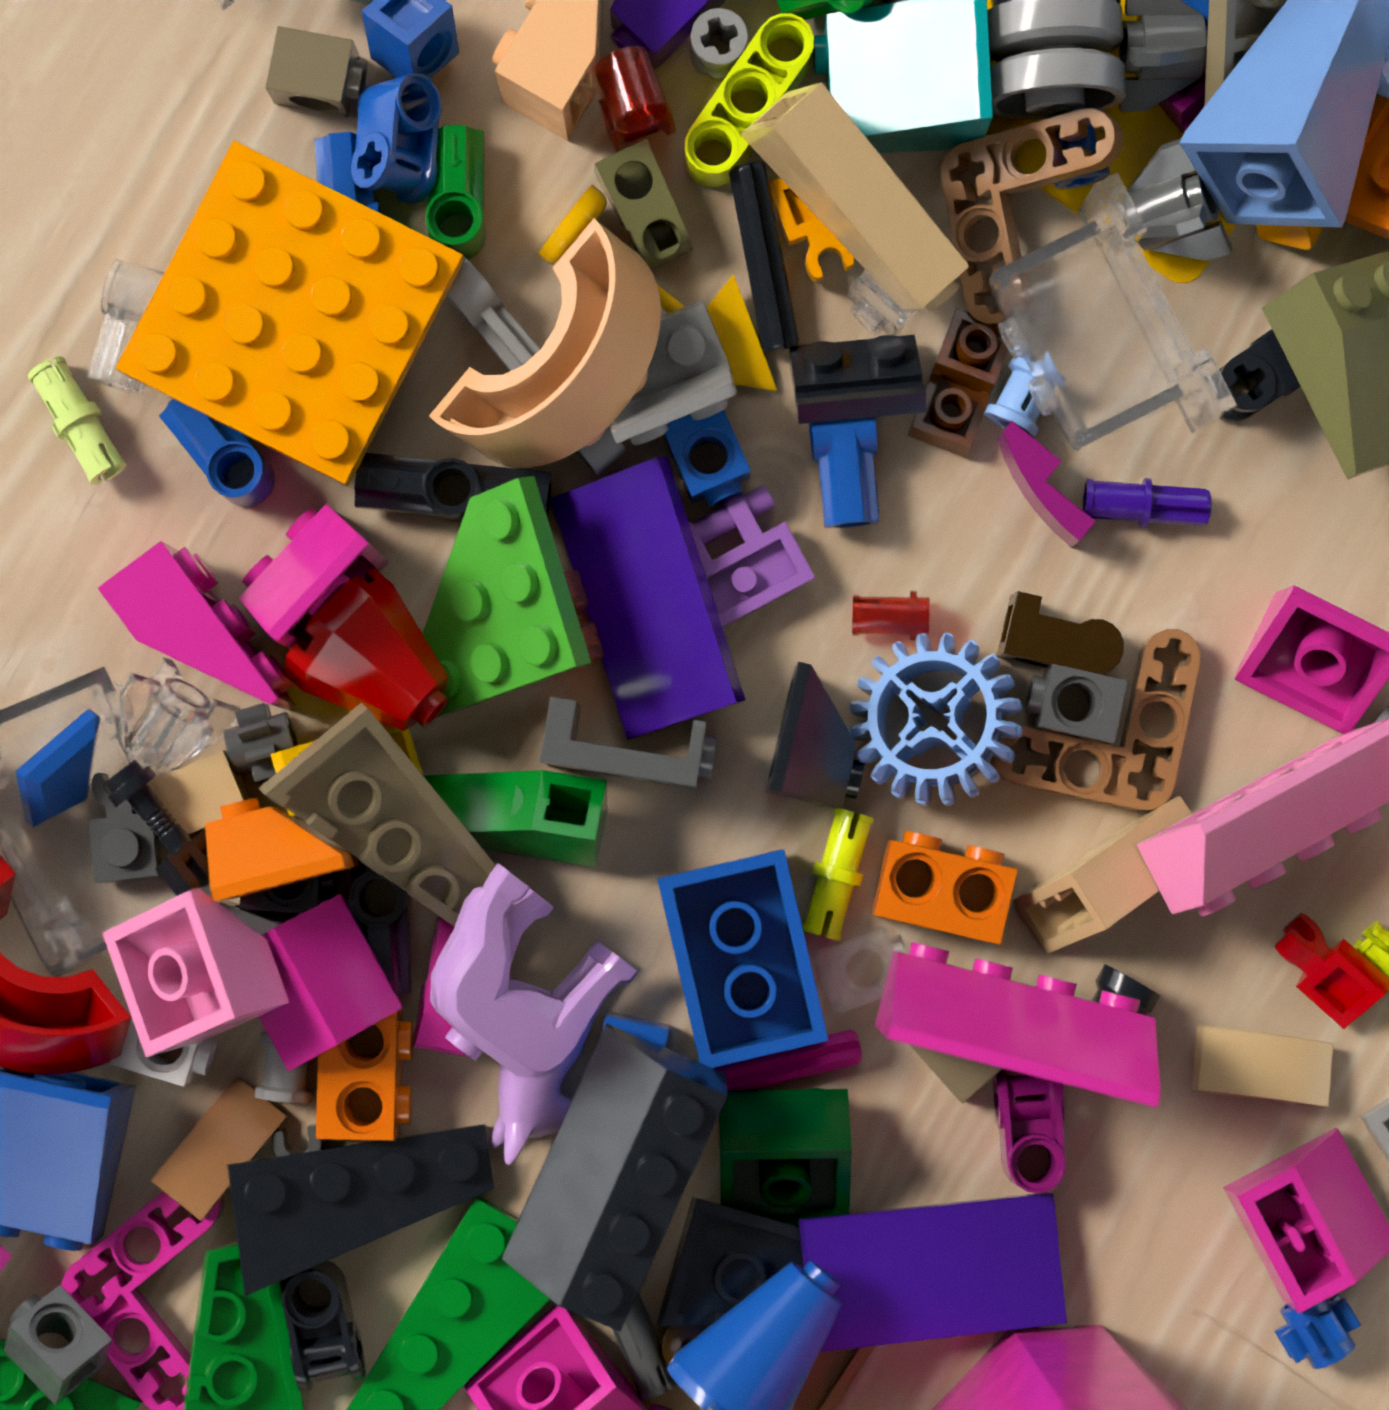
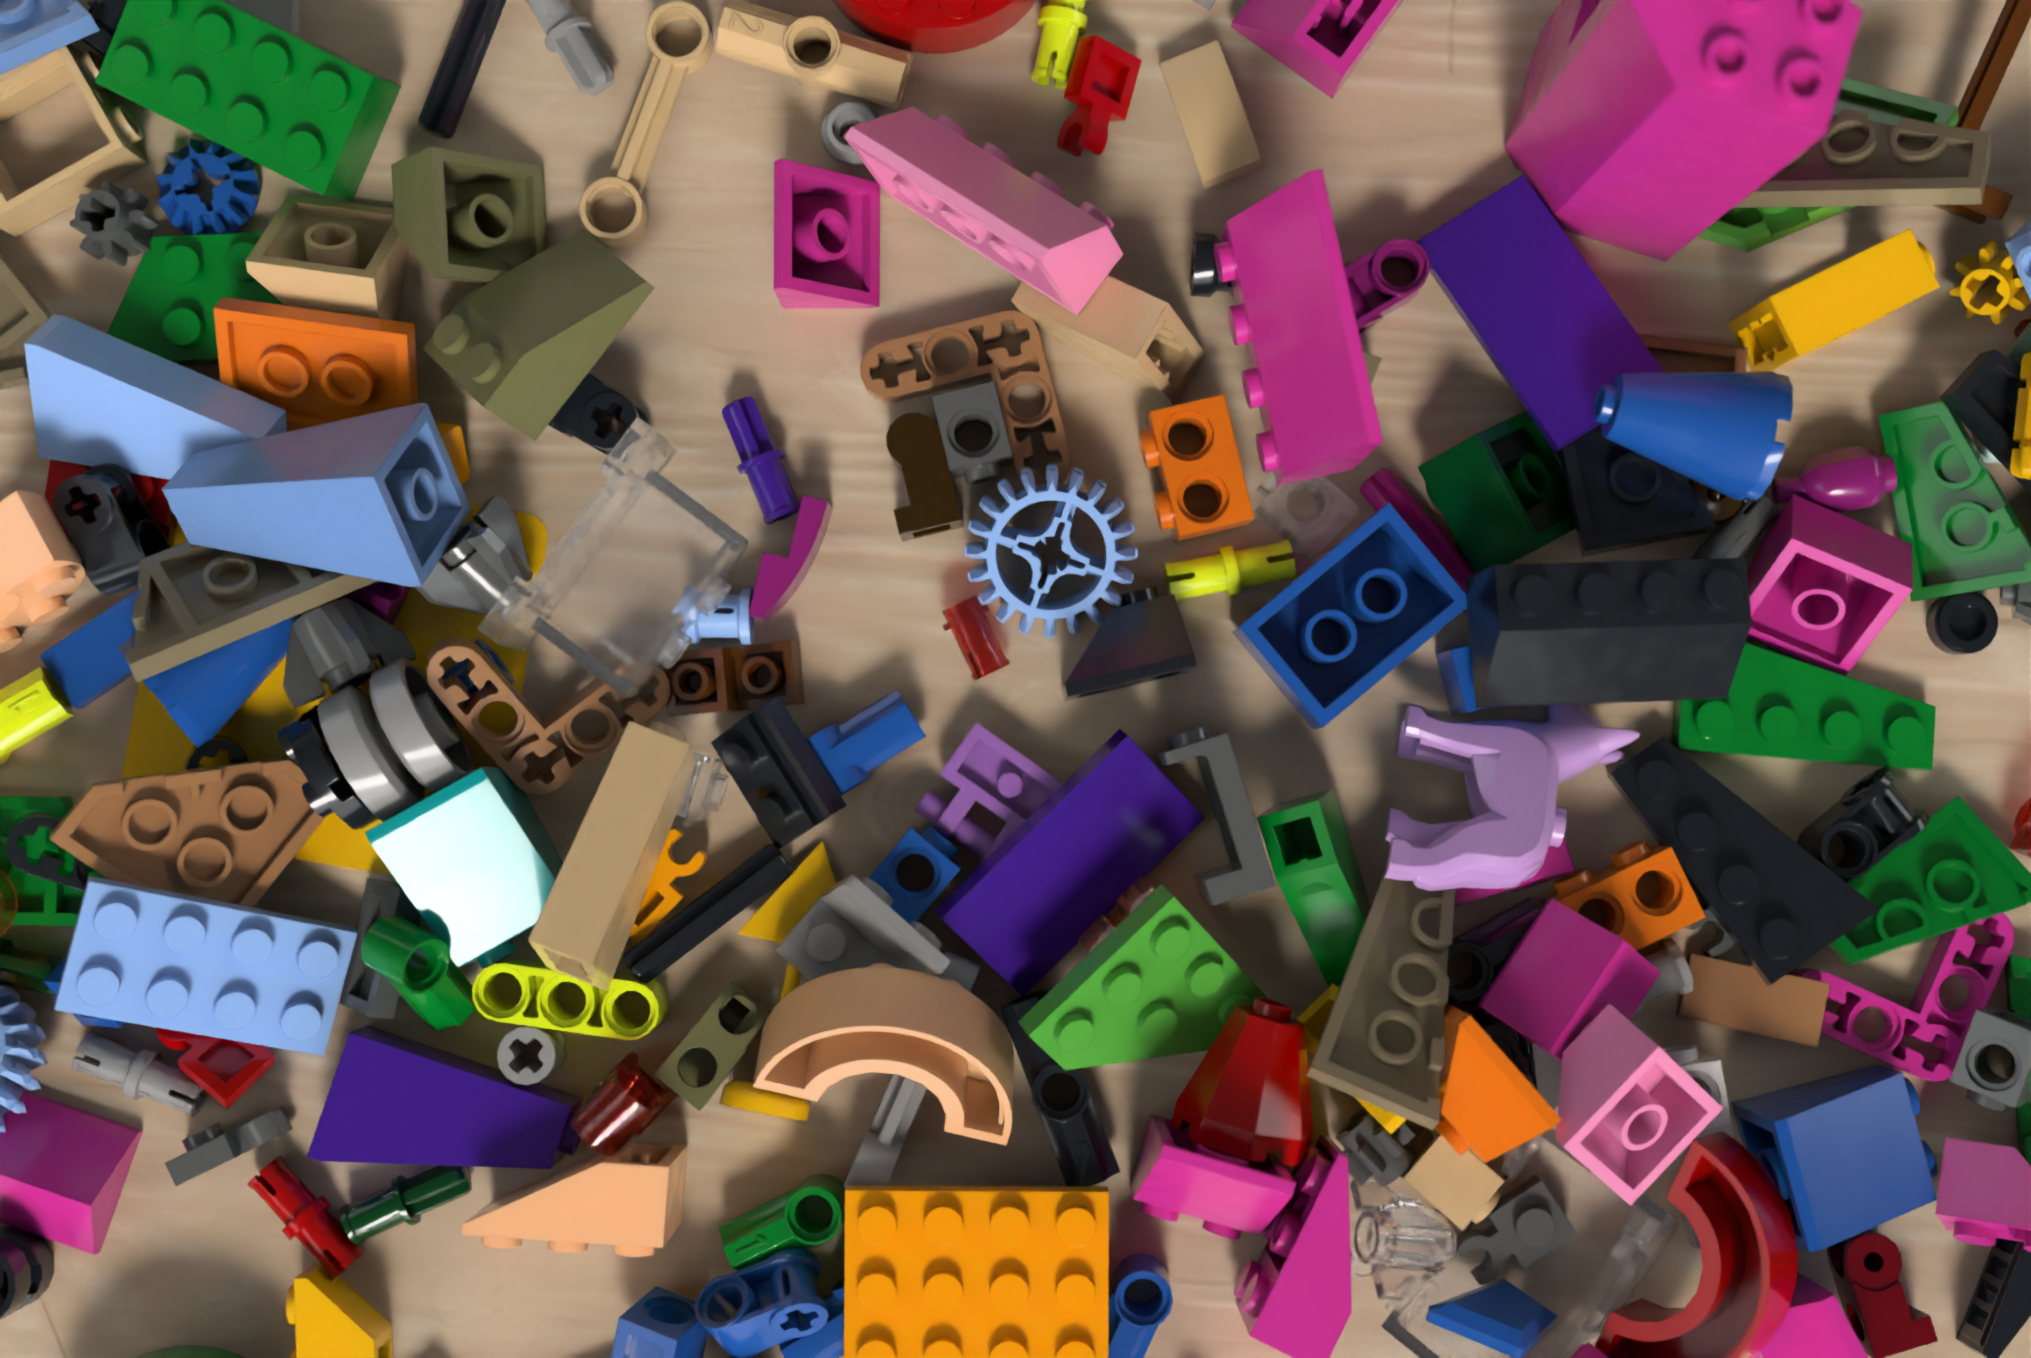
camera: 115 degrees left, 0 degrees up
(188, 862) = (1529, 1161): black hinge -> none

